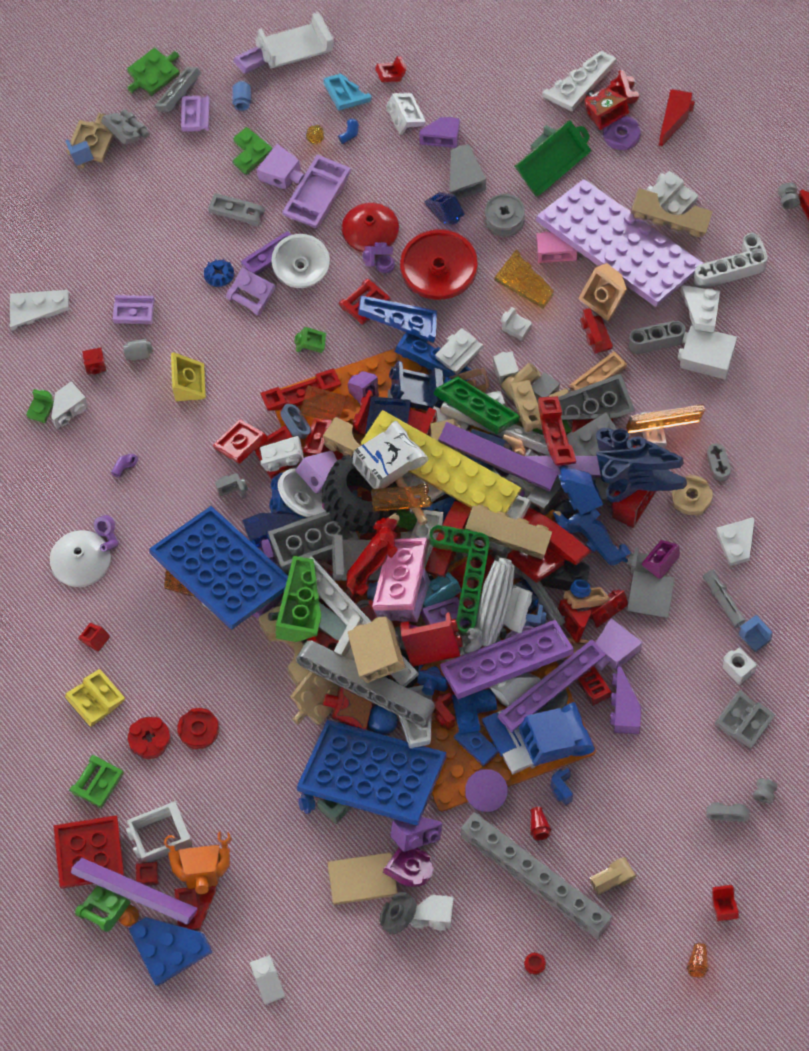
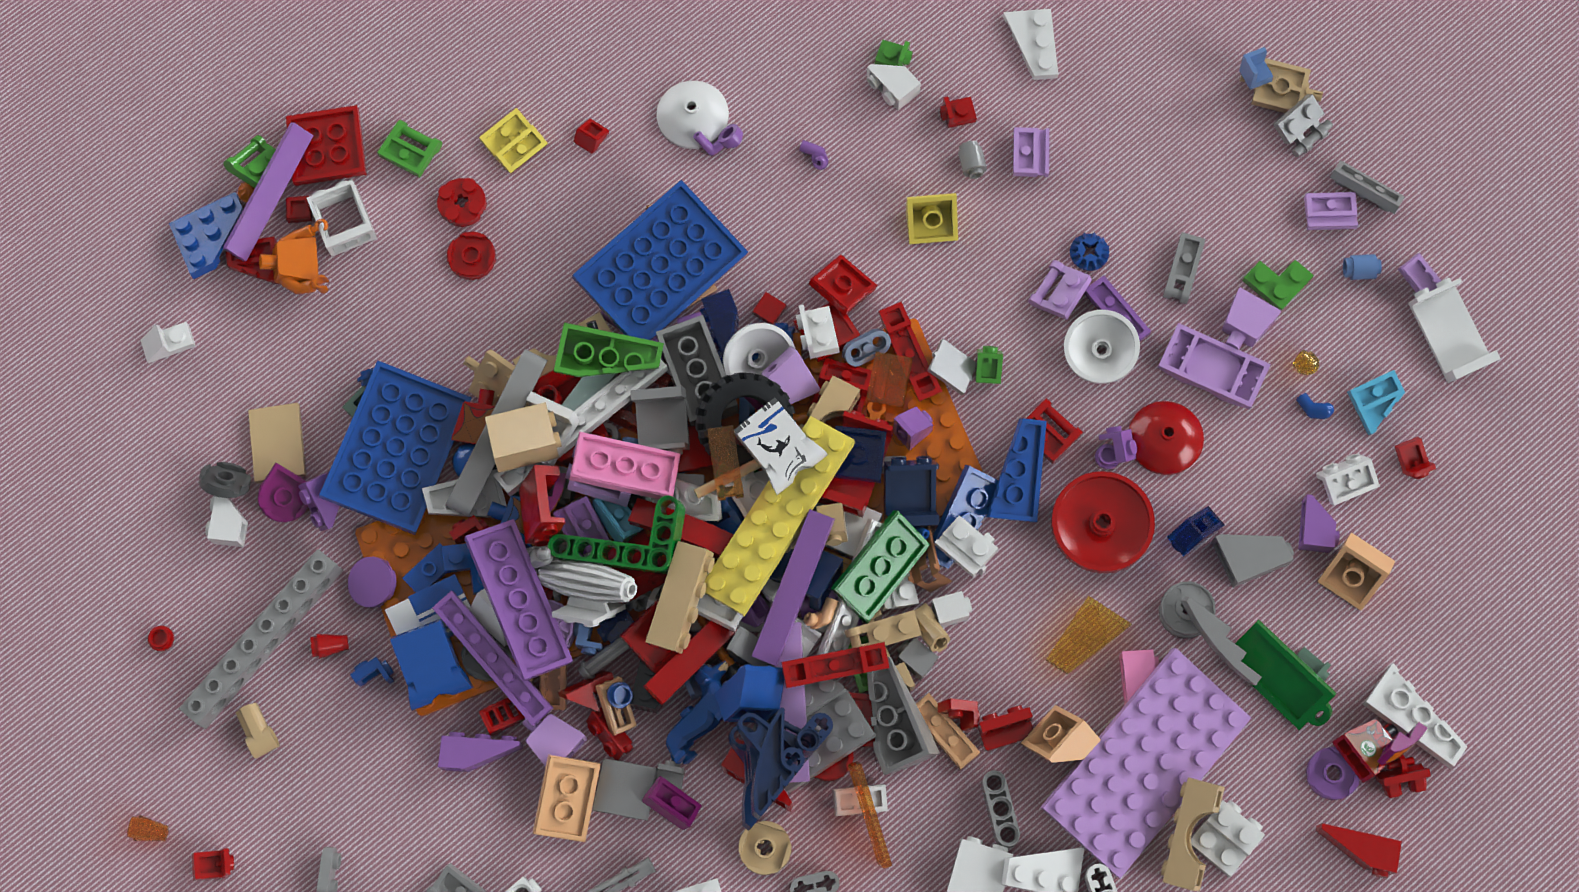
camera: 90 degrees right, 10 degrees up
(153, 71) = (1396, 156): bright green plate -> none
(230, 484) = (784, 272): light grey bracket -> none
(256, 497) = (769, 308): none -> red tile
(312, 363) = (952, 367): none -> piece
(373, 555) = (654, 435): red animal -> none
(475, 109) = (1356, 571): none -> light nougat slope
(515, 324) = (1019, 623): white bracket -> none
(529, 190) = (1215, 633): none -> light grey slope
(586, 358) = (961, 709): none -> red bracket
(603, 80) = (1401, 744): none -> magenta slope
(660, 632) = (566, 798): none -> light nougat tile

